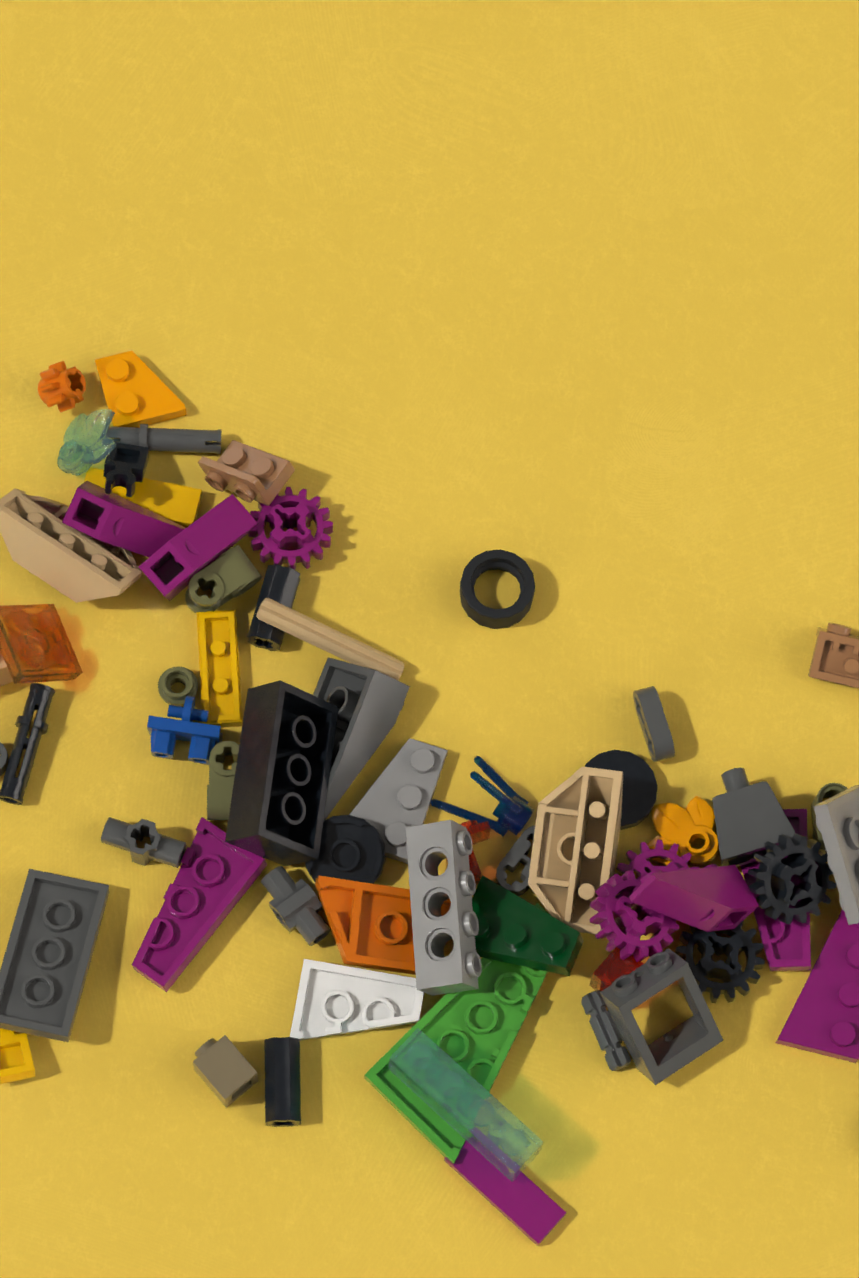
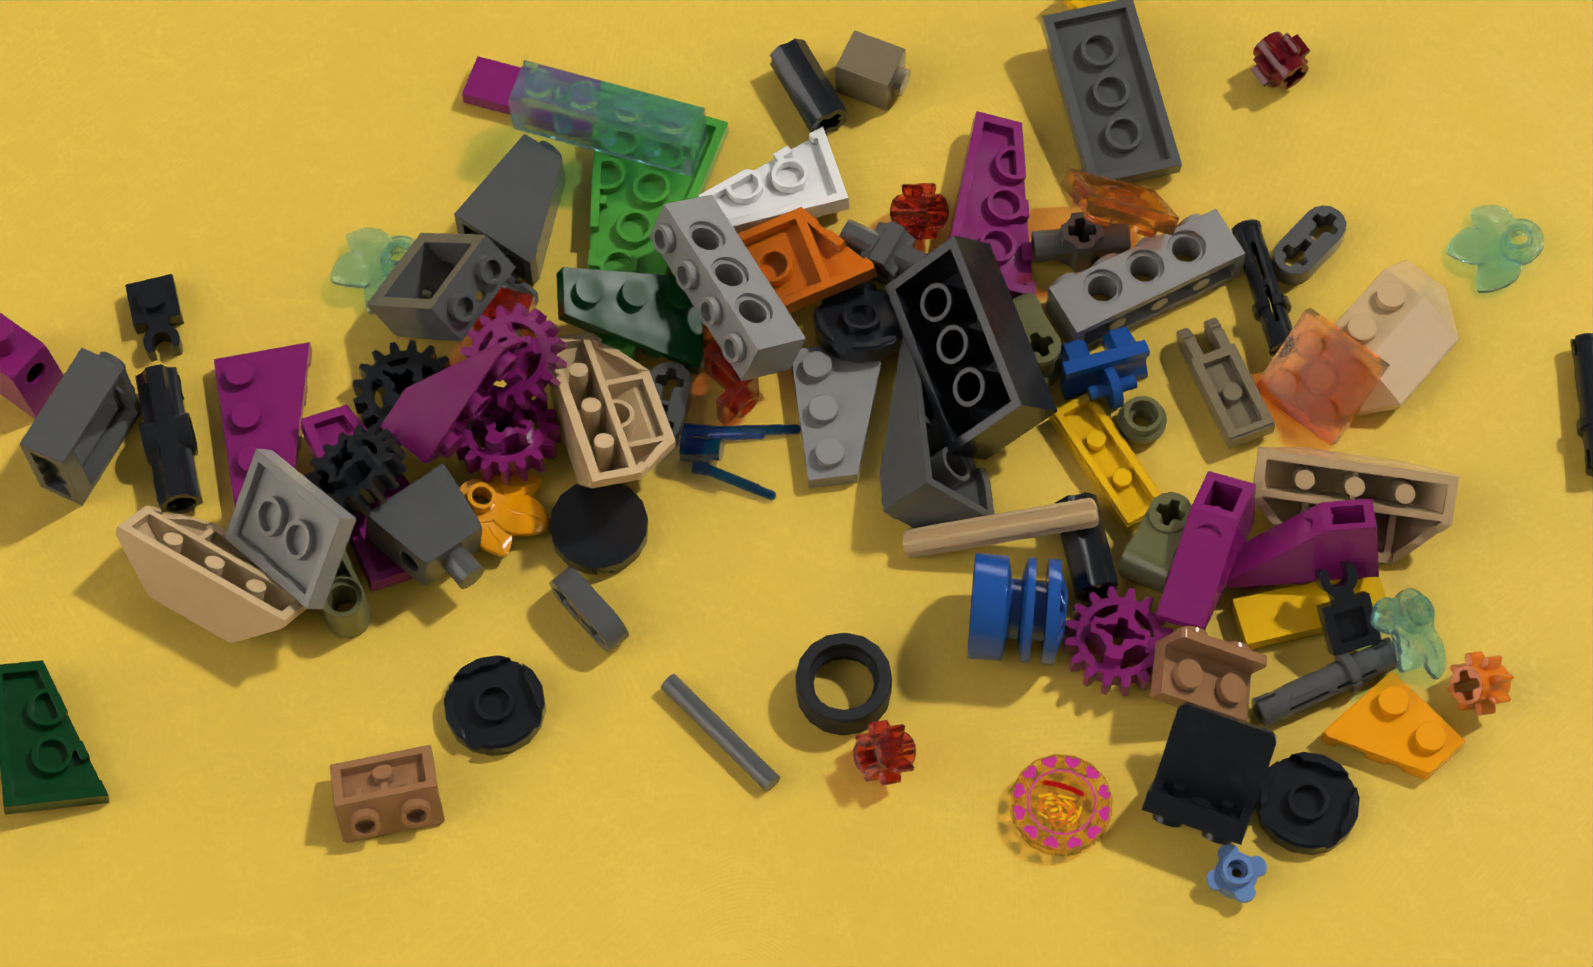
camera: 160 degrees right, 5 degrees down
(94, 775) = (1201, 237): none -> light grey brick
(102, 681) = (1226, 386): none -> dark tan hinge
(102, 843) = (1119, 201): none -> clear orange plate
(223, 374) = (1307, 803): none -> black tile
(254, 923) = (920, 210): none -> clear red gear
(288, 402) = (1210, 774): none -> black bracket
(302, 357) = (1232, 887): none -> medium blue plate
(361, 573) = (1016, 608): none -> blue wheel
(389, 445) = (1061, 804): none -> clear yellow tile
(494, 523) = (884, 752): none -> clear red gear
(567, 1078) = (518, 205): none -> dark grey slope
(598, 600) = (720, 732): none -> dark grey bar
(704, 1087) = (368, 260): none -> clear light blue plate
(749, 691) = (495, 705): none -> black tile

